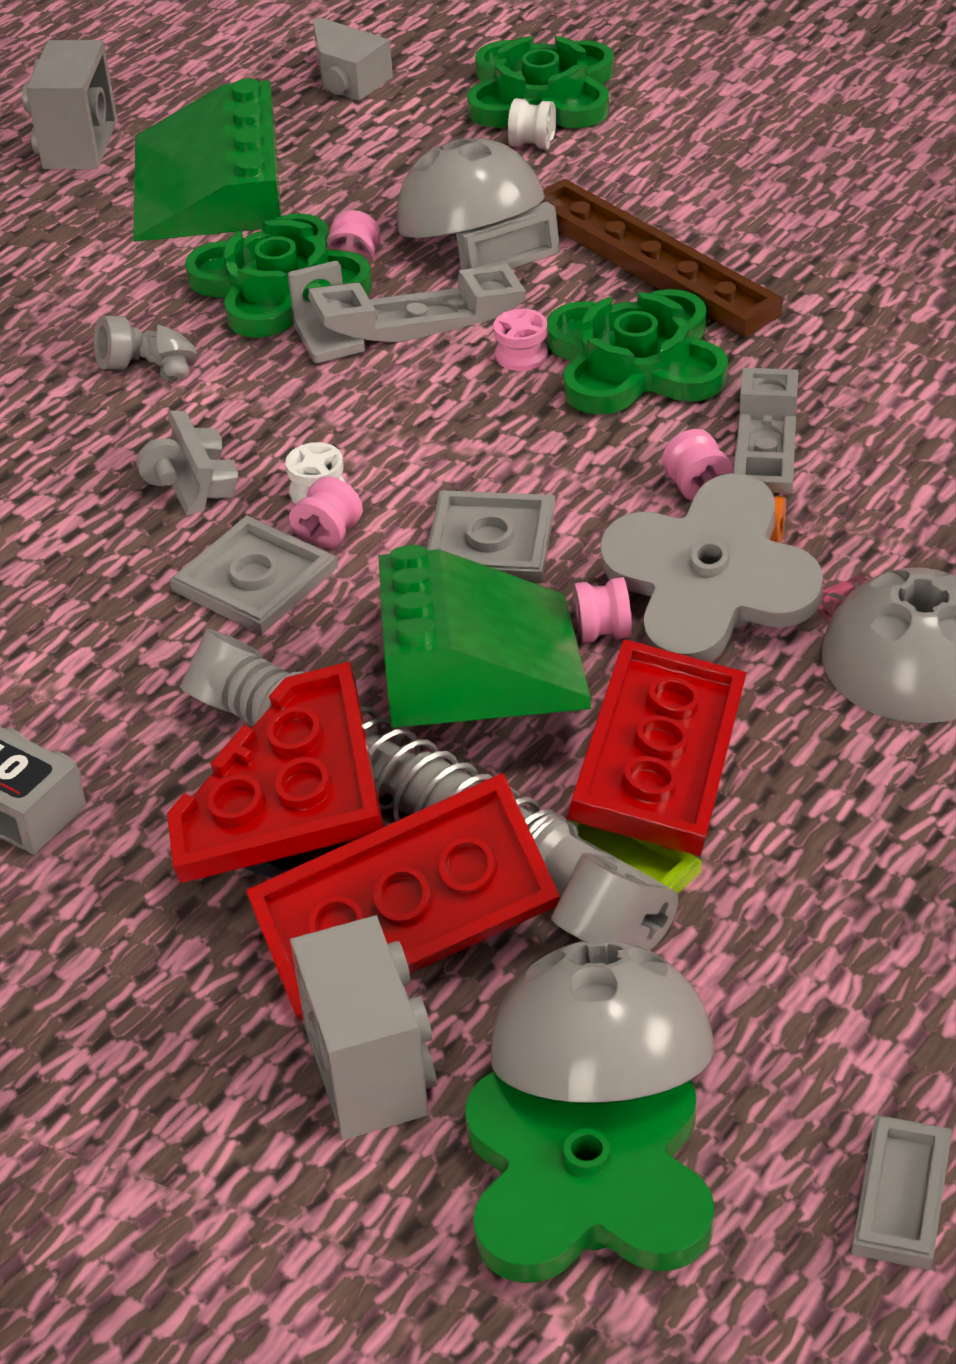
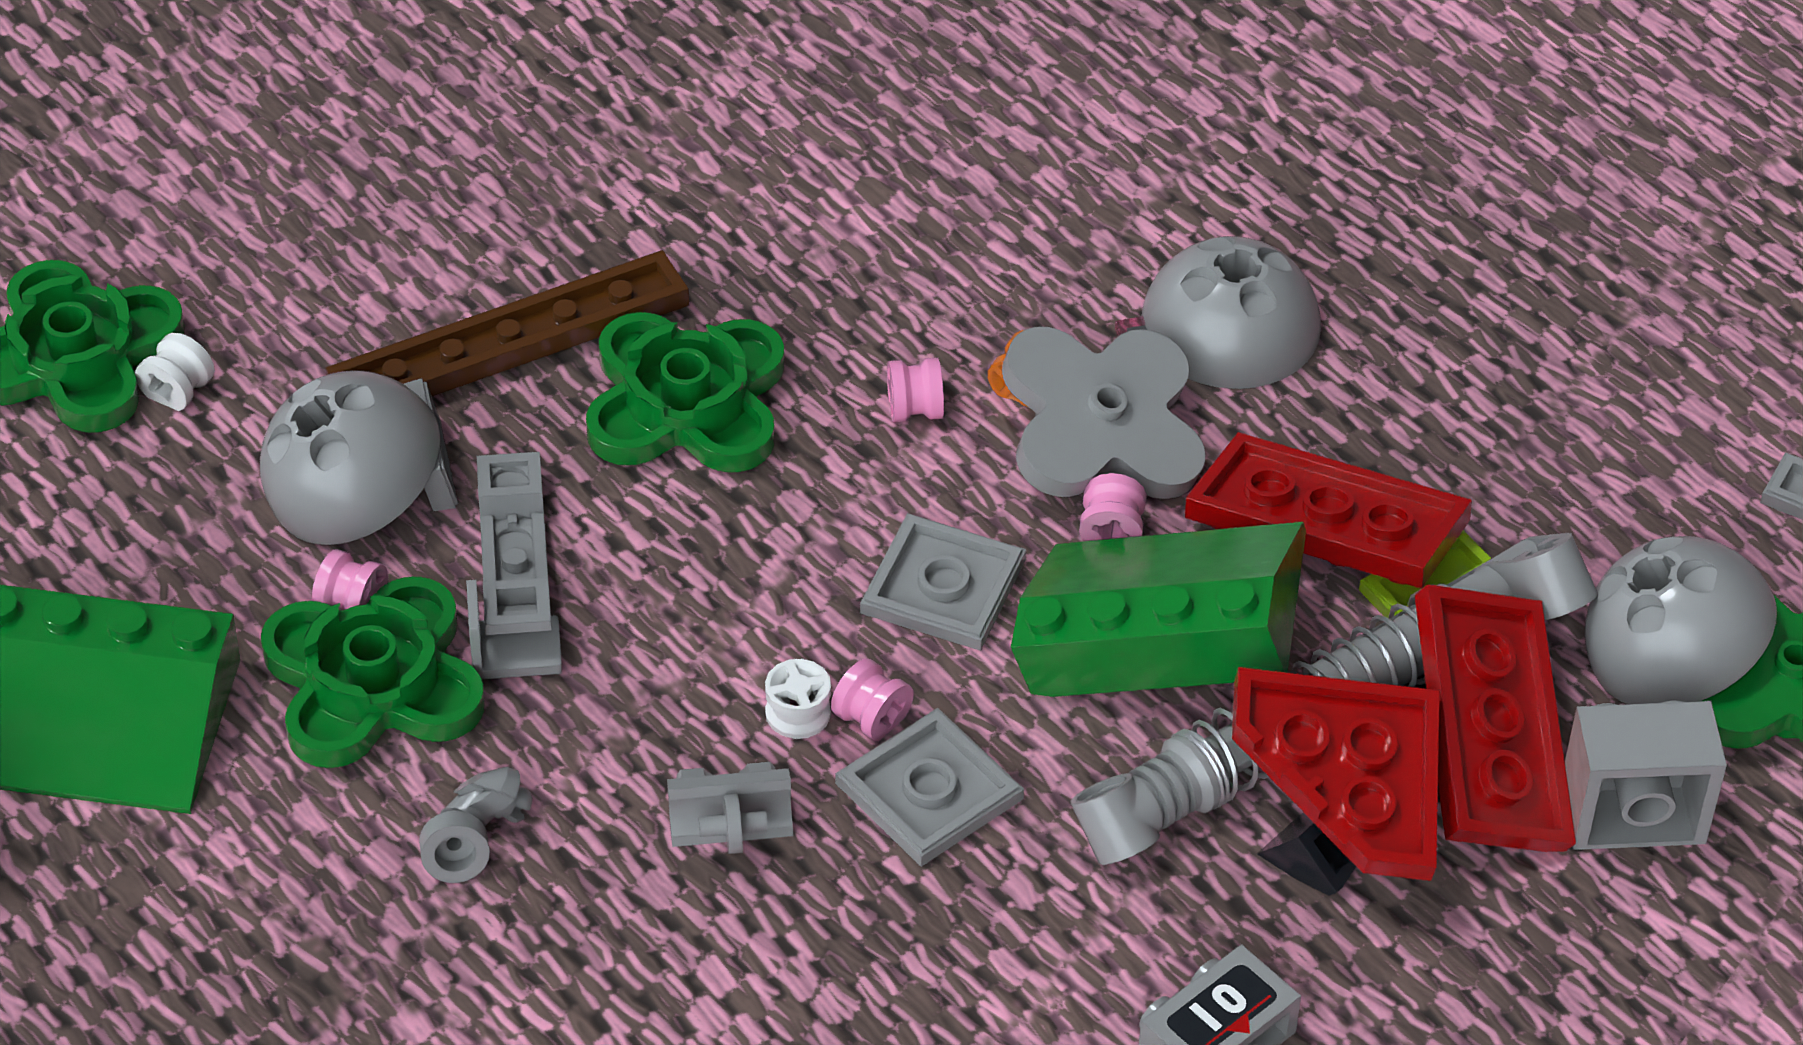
camera: 80 degrees left, 5 degrees up
(521, 339) = (633, 469): bright pink wheel -> none
(768, 427) = (824, 316): light grey slope -> none

